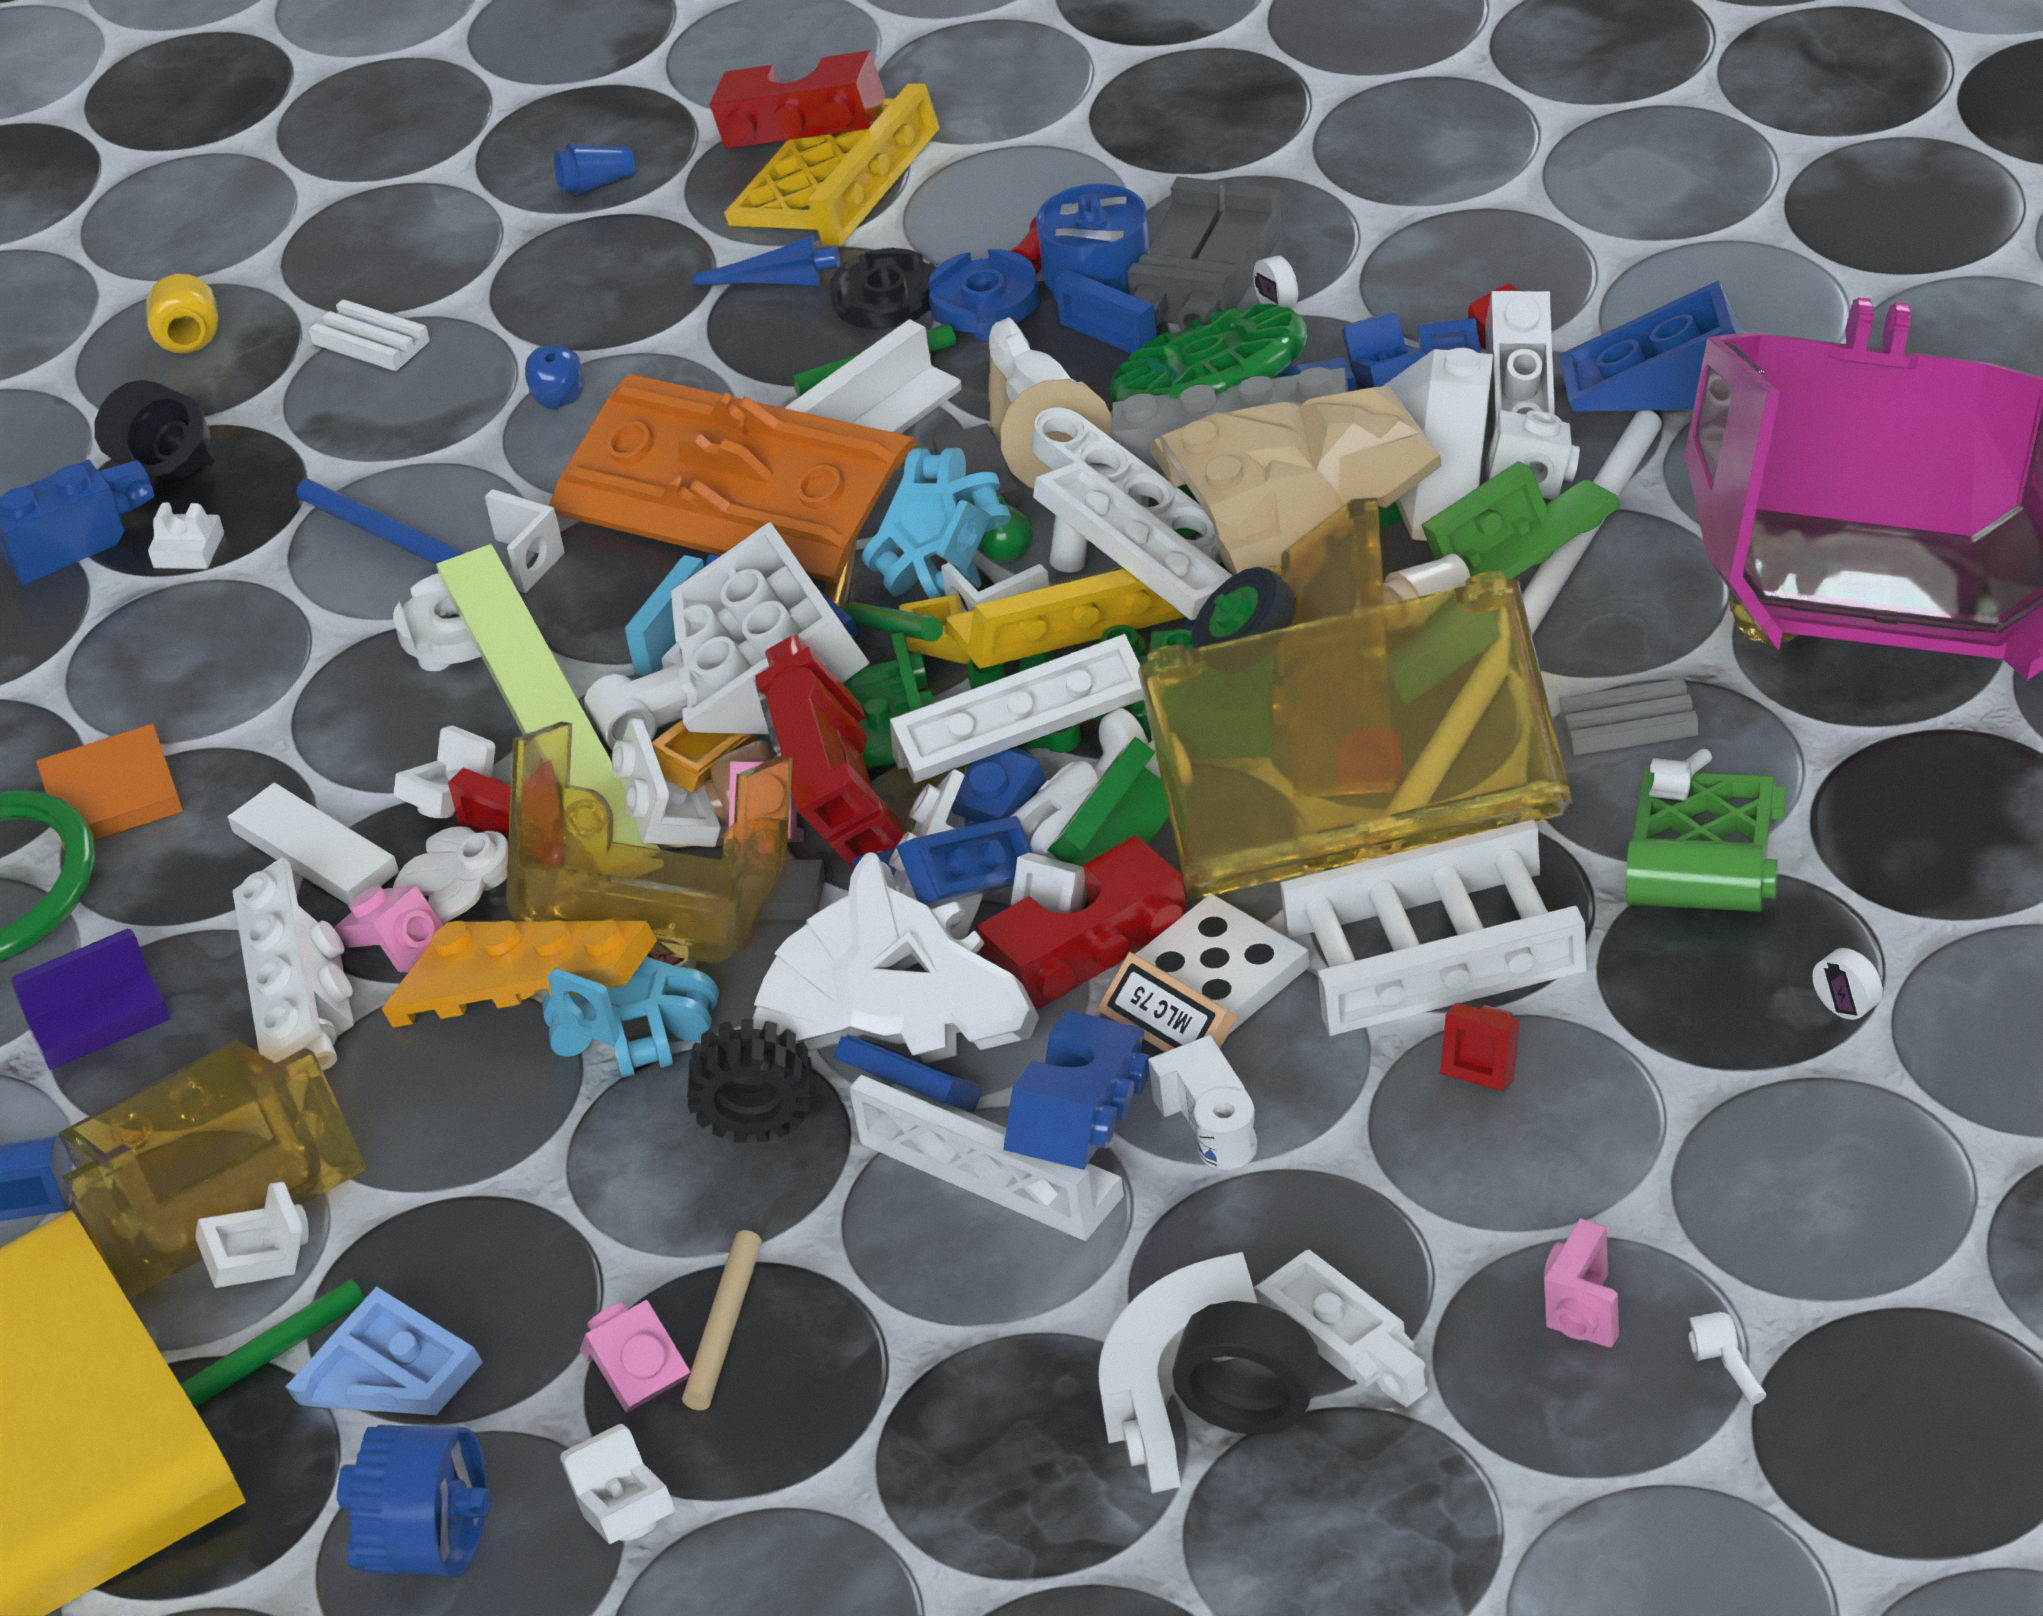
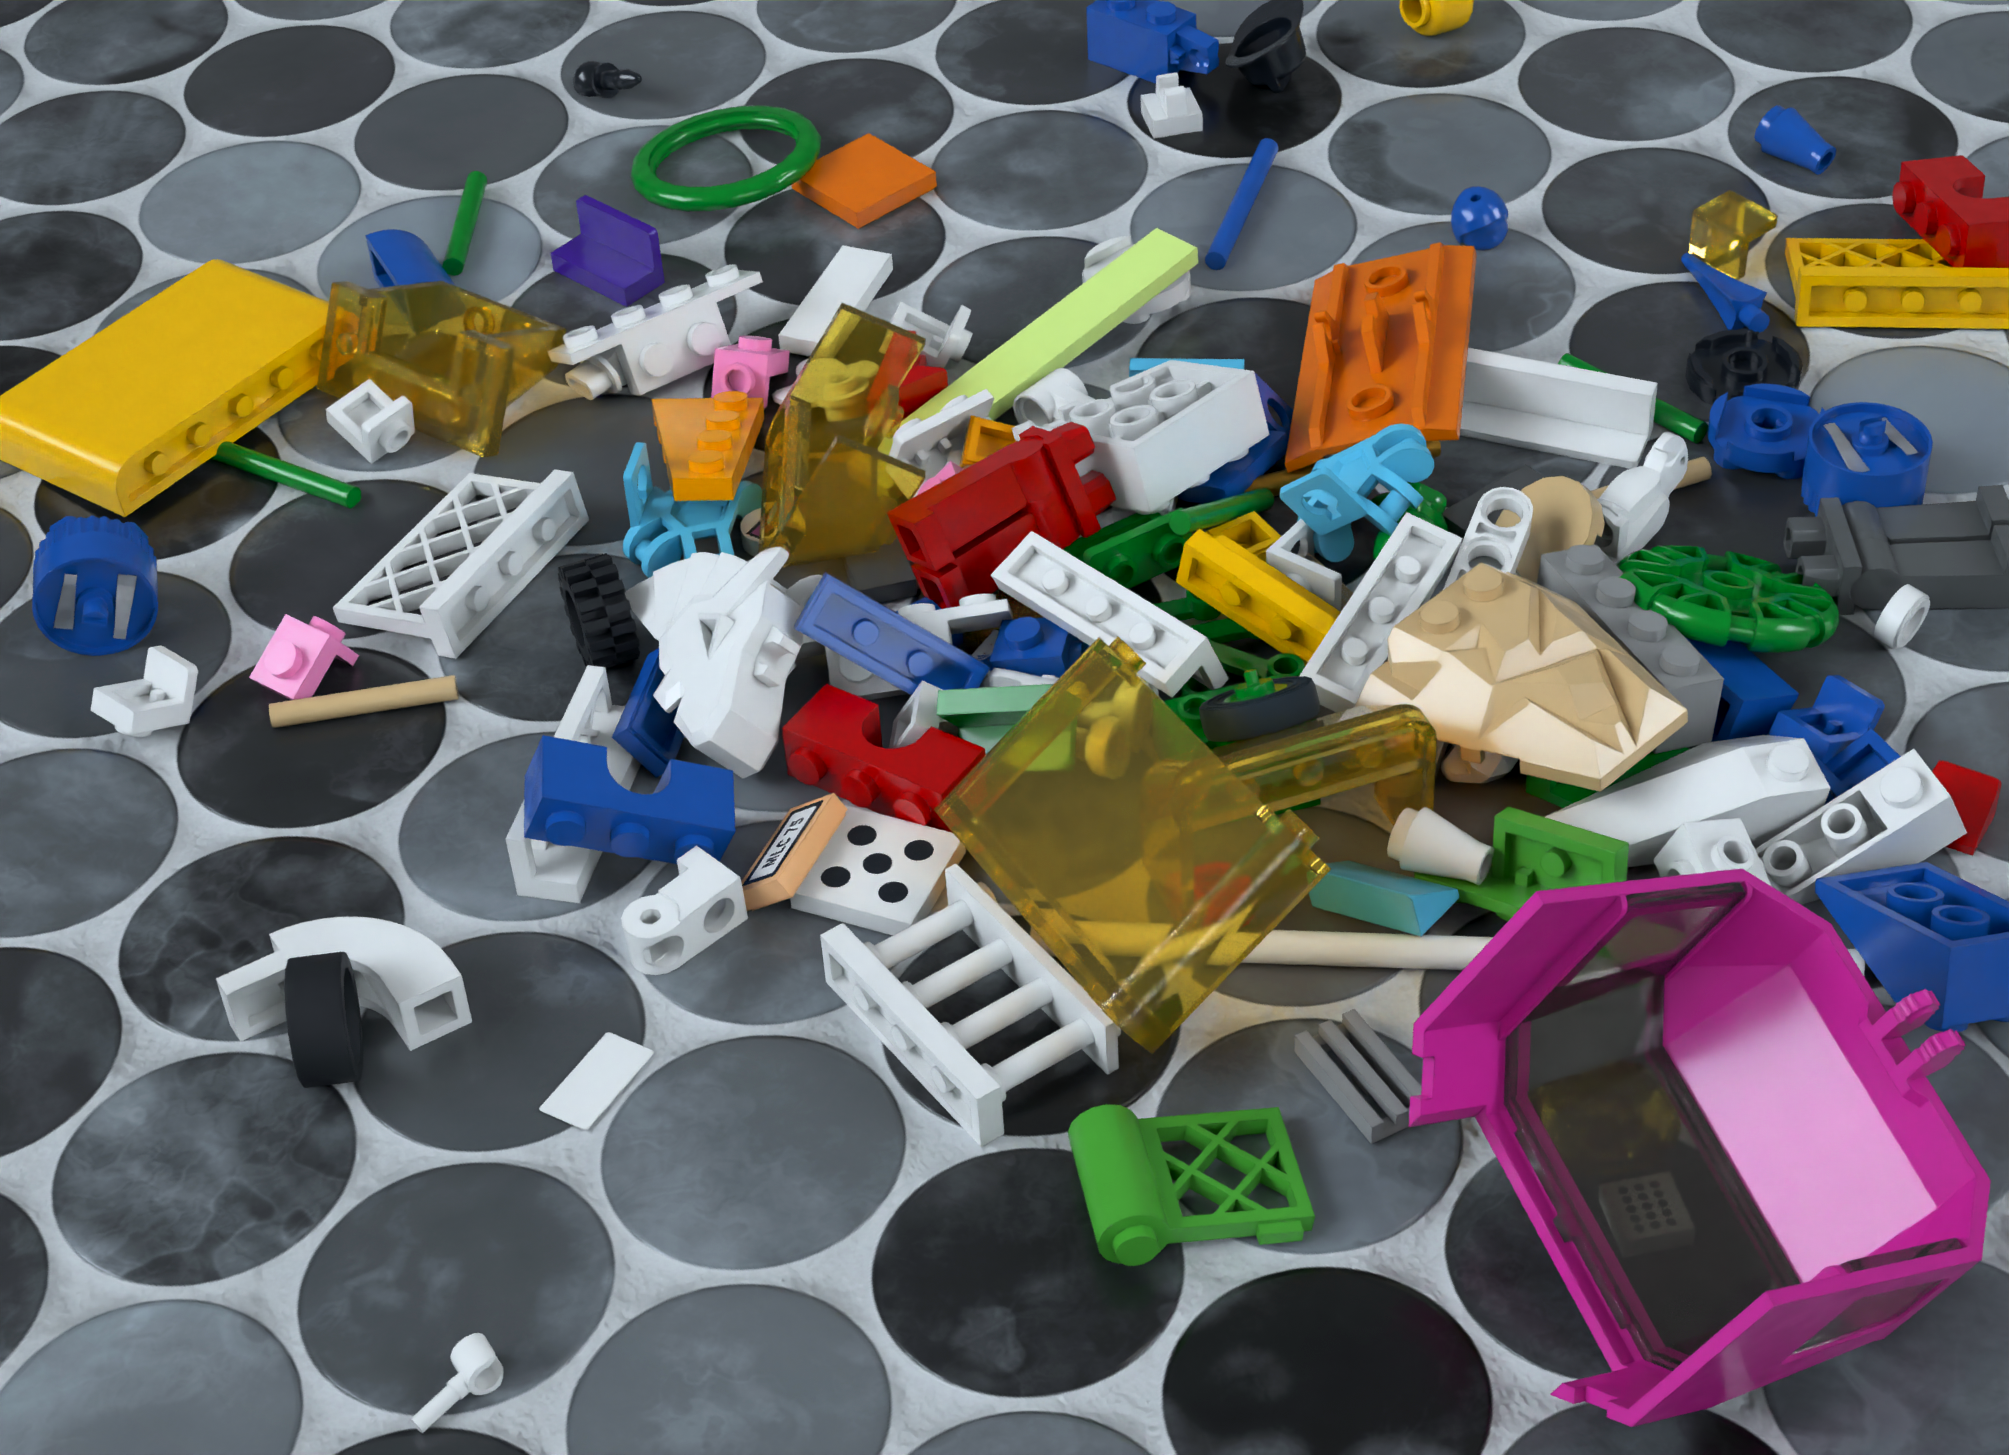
camera: 65 degrees right, 0 degrees up
(372, 331) = (1490, 90): white tile -> none
(386, 1362) = (271, 533): light blue wing -> none
(525, 527) = (1260, 276): white bracket -> none
(592, 1171) = (482, 576): none -> white fence
(707, 233) = (1725, 228): none -> clear yellow panel
(1104, 312) = (1775, 508): blue tile -> none
(1347, 1326) = (425, 1086): white hinge -> none
(1378, 1215) = (596, 1081): none -> white sticker
(1480, 1045) = (819, 1082): red tile -> none
(1574, 1288) = (508, 1235): bright pink bracket -> none
(1674, 777) = (1251, 1128): white hand -> none
(1847, 983) = (999, 1349): white tile -> none

